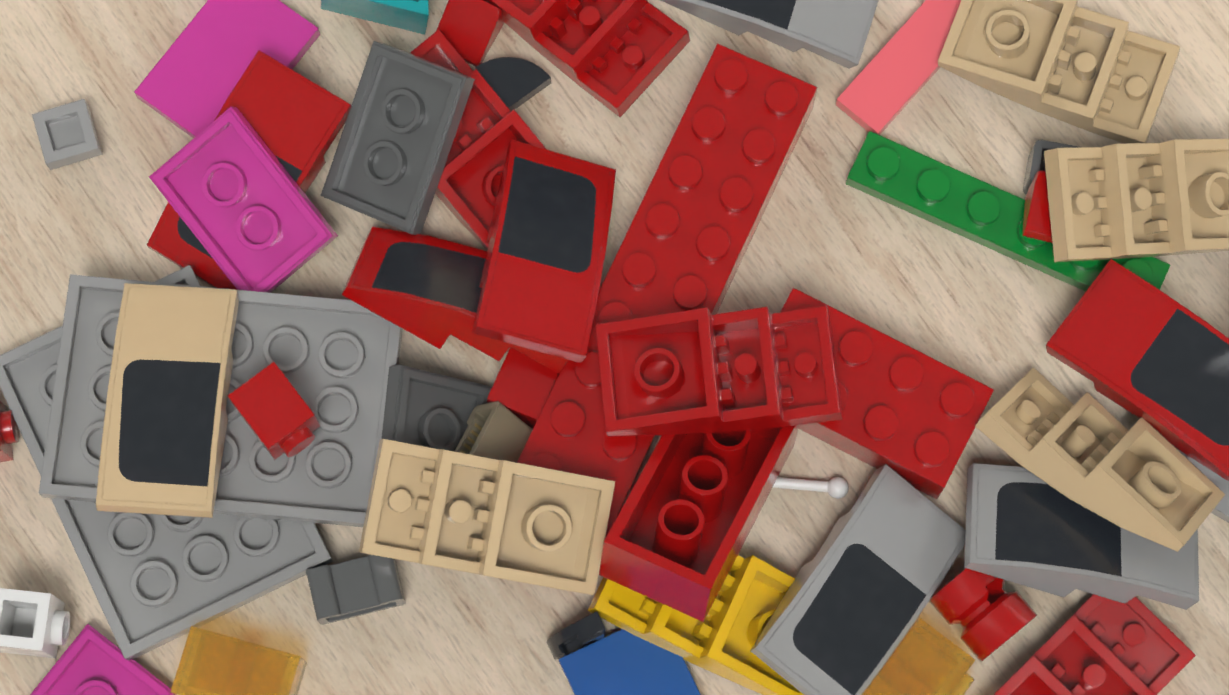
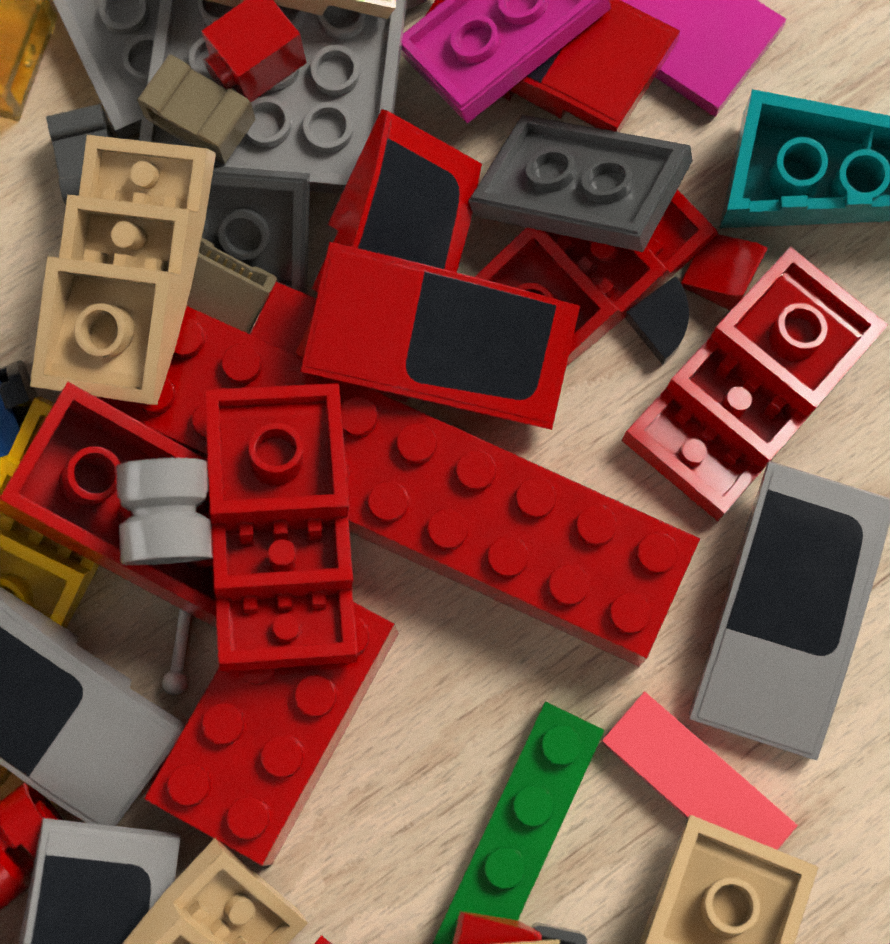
camera: 95 degrees right, 0 degrees up
(332, 462) = (196, 109): none -> dark tan piece
(718, 453) = (164, 506): none -> light grey wheel

